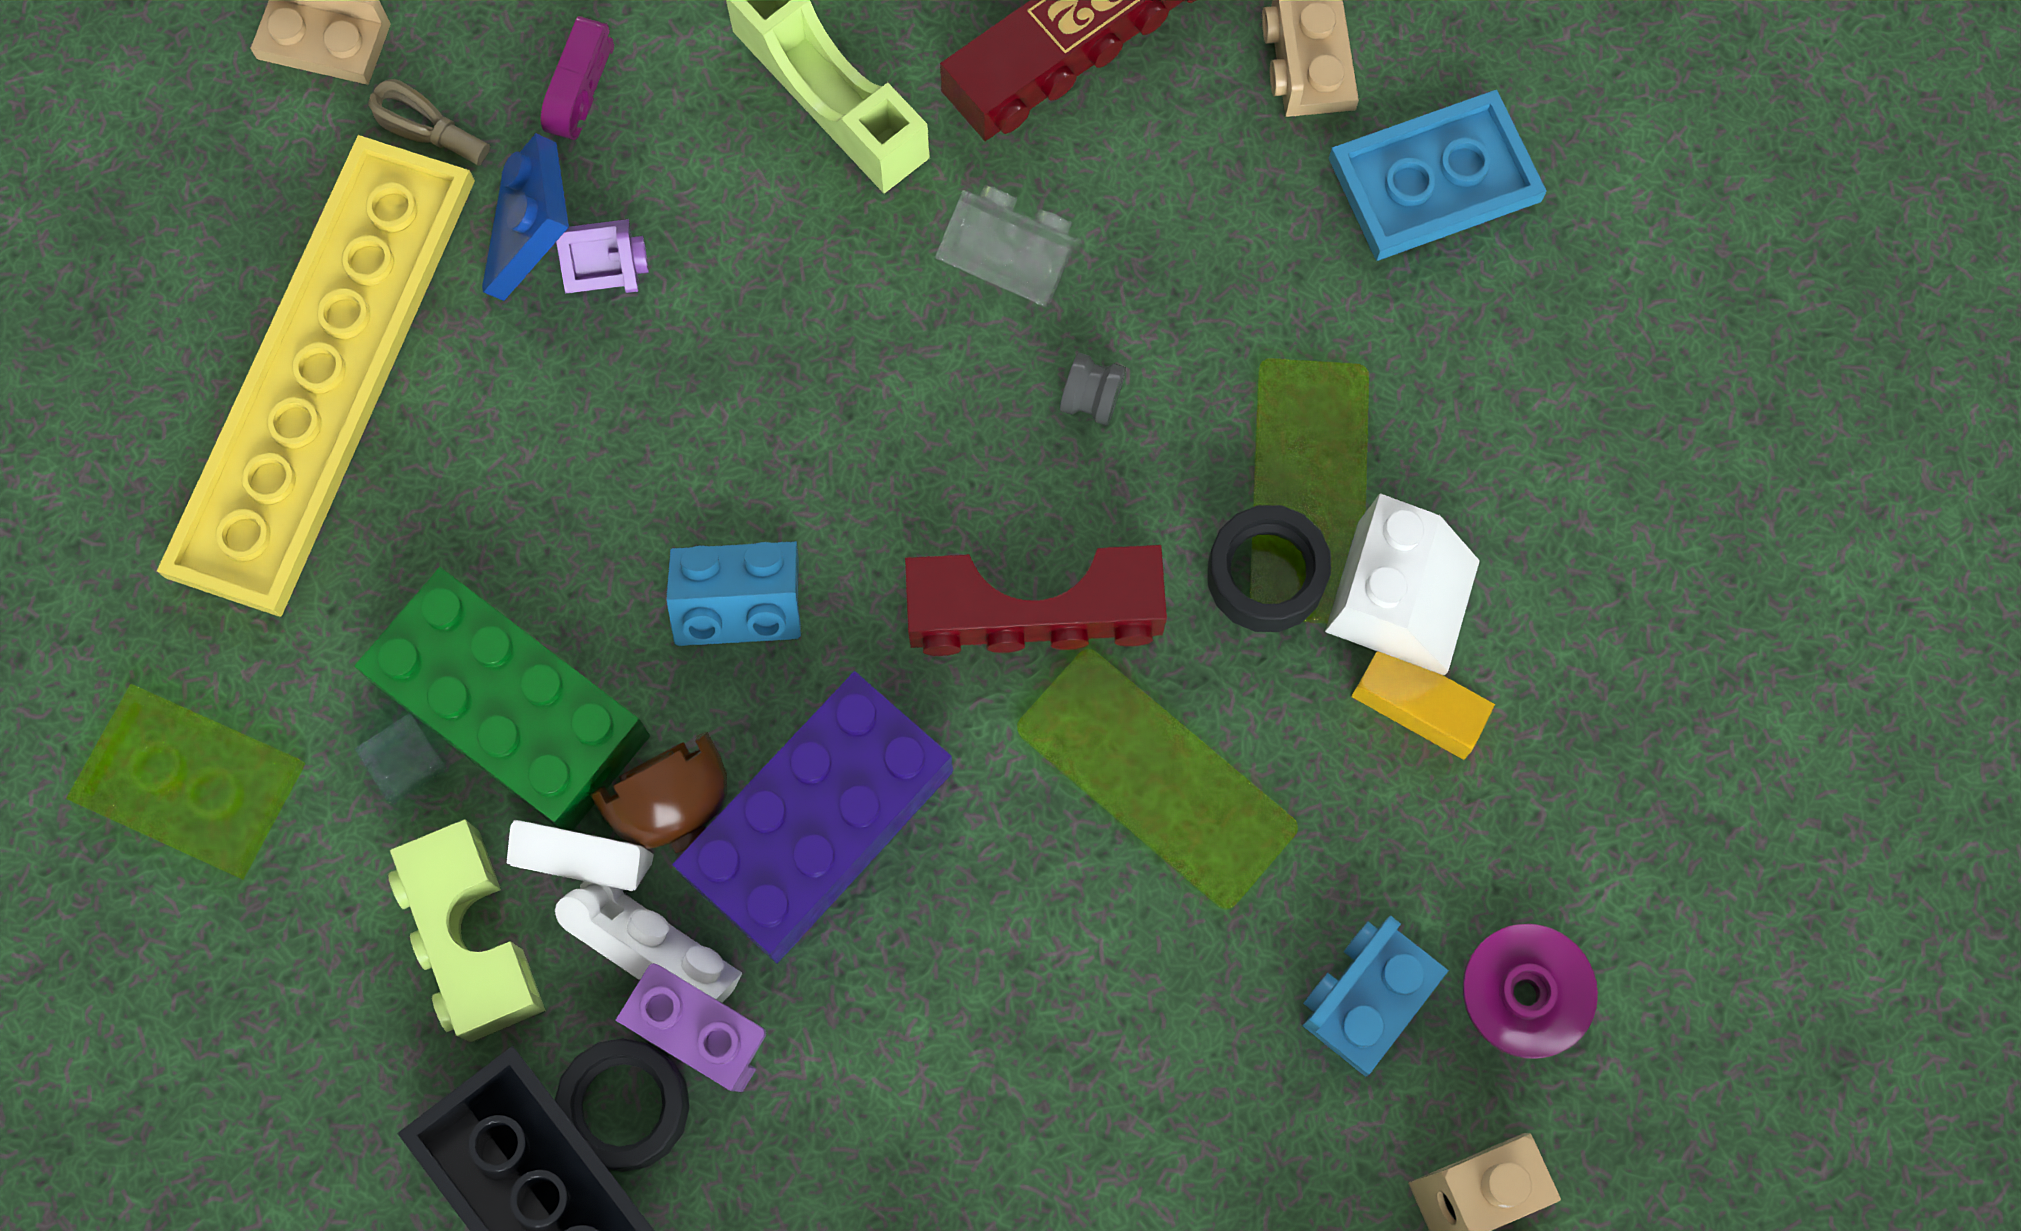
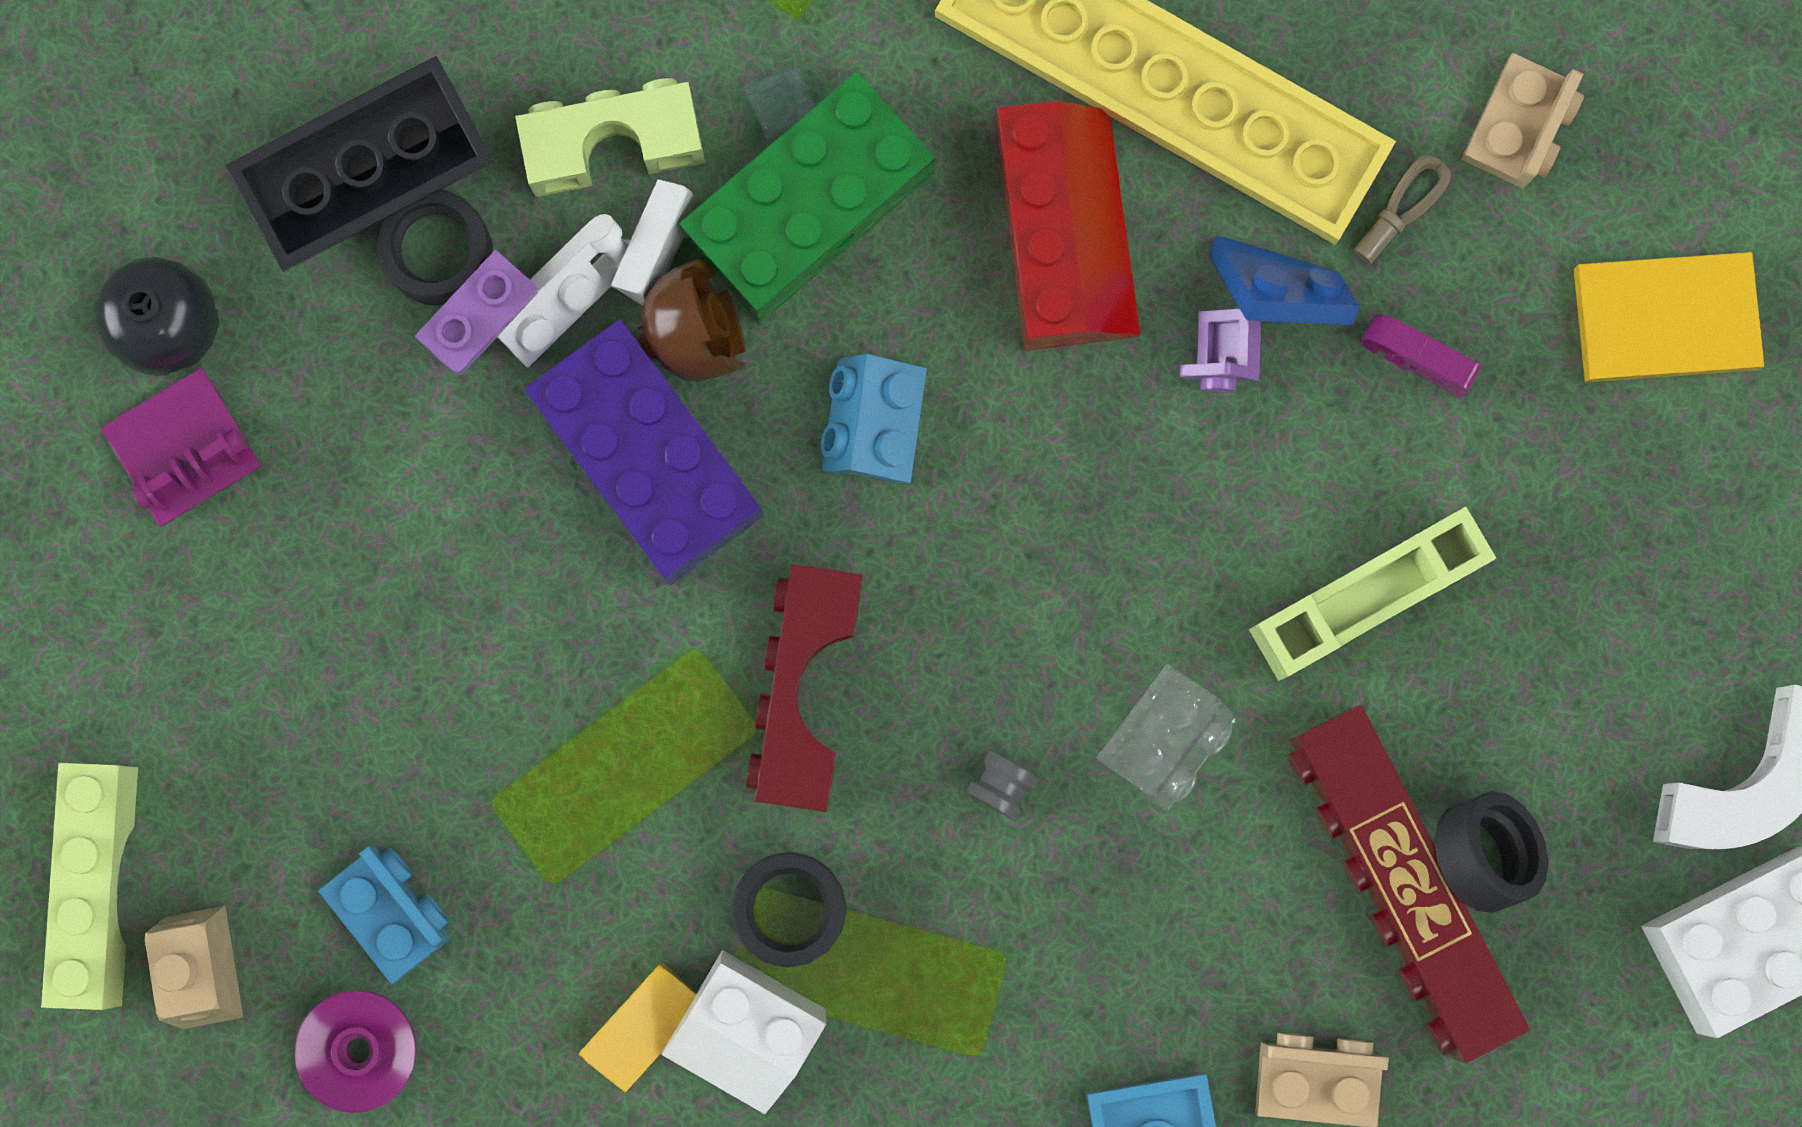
camera: 100 degrees right, 10 degrees up
(493, 443) = (1066, 225): none -> red slope

